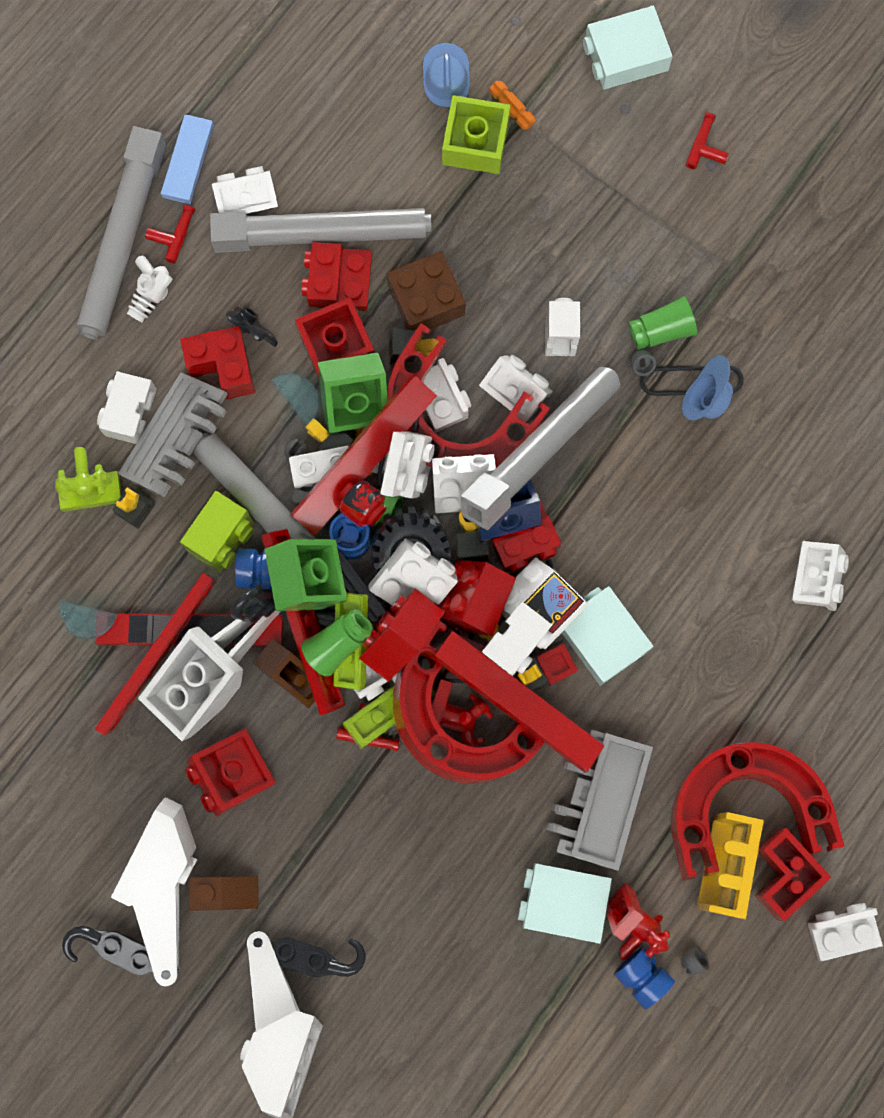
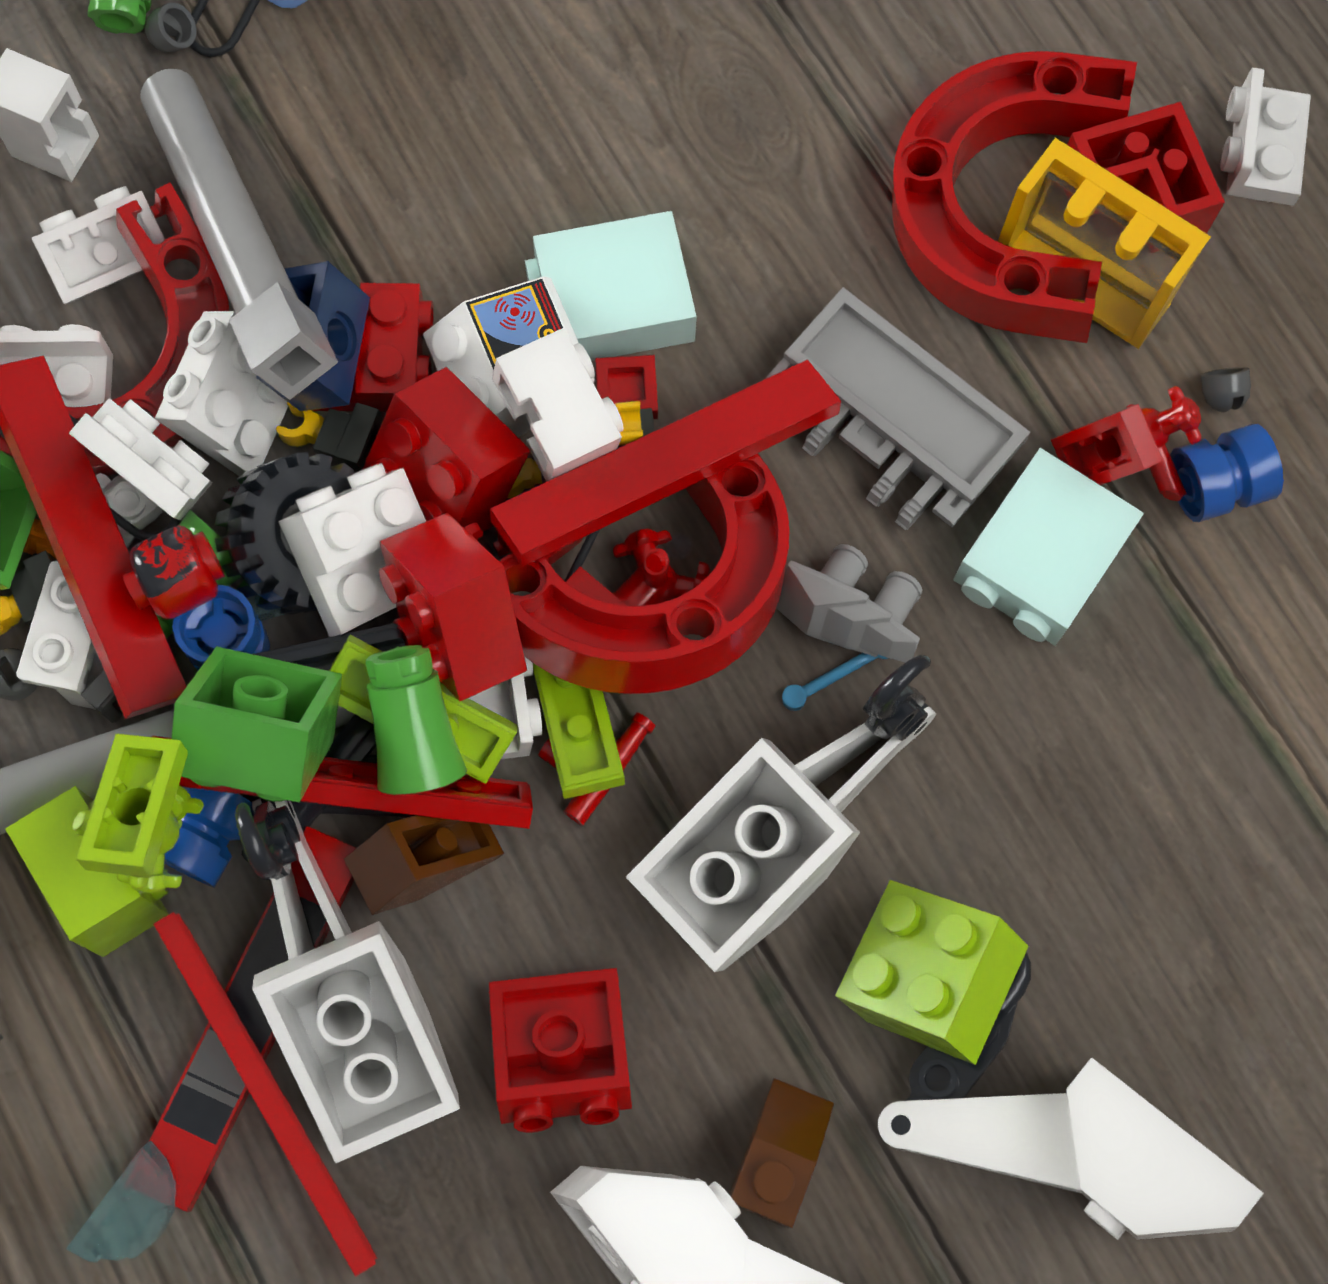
camera: 70 degrees left, 5 degrees down
(239, 545) = (137, 813): none -> lime piece
(329, 928) = (932, 970): none -> lime brick
(359, 825) = (769, 833): none -> white slope
(441, 811) = (795, 696): none -> dark azure hinge
(485, 809) = (836, 612): none -> light grey connector

